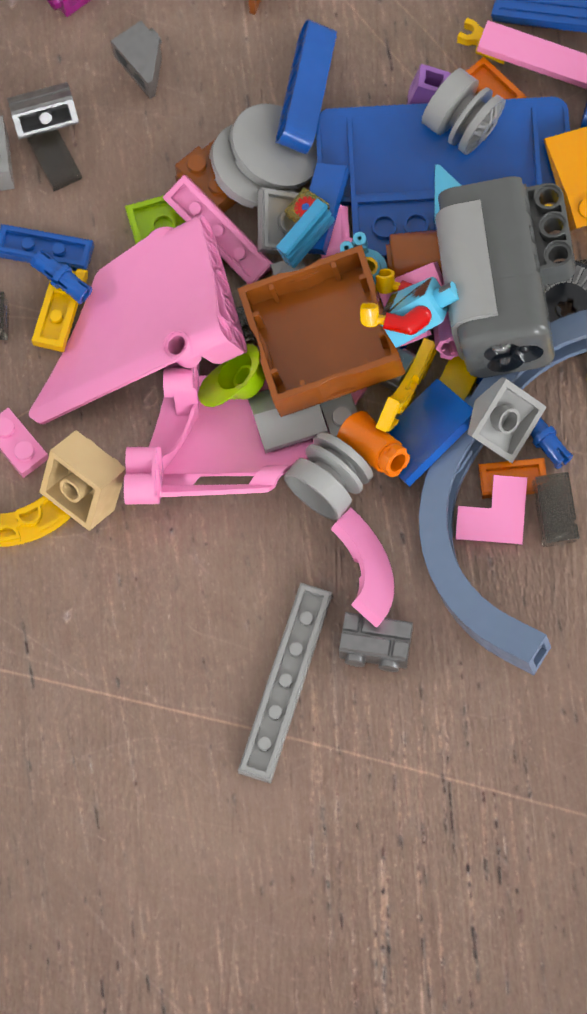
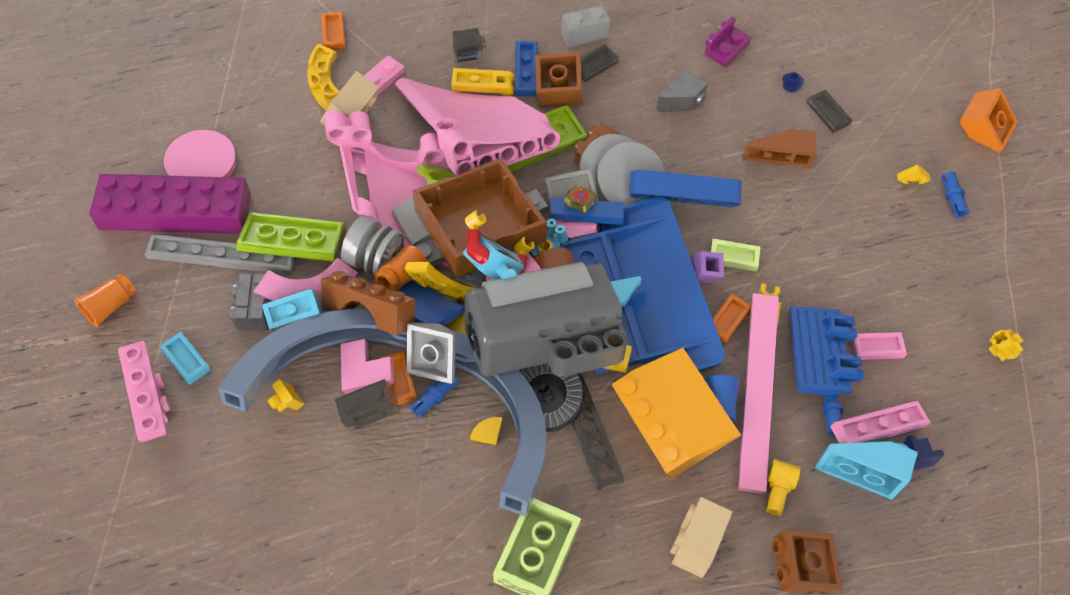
camera: 70 degrees right, 10 degrees down
(43, 110) = (624, 45): flat silver brick -> none
(61, 276) = (499, 71): blue pin -> none
(88, 203) = (559, 79): none -> dark orange brick
(118, 702) = (200, 154): none -> bright pink tile
(196, 739) = (170, 203): none -> magenta brick
(232, 243) = (556, 159): bright pink tile -> none
(279, 586) = (291, 236): none -> lime tile
(305, 233) = (557, 198): dark azure tile -> none
(340, 829) = (105, 299): none -> orange plant
(404, 58) = (737, 254): none -> yellowish green tile
(409, 583) = (292, 308): none -> medium azure panel
(440, 735) = (185, 358): none -> medium azure tile
(441, 456) = (389, 308): none -> dark orange arch
(459, 108) = (683, 279): light grey wheel -> none
(497, 774) = (144, 392): none -> bright pink bracket
(523, 608) = (285, 397): none -> yellow tile

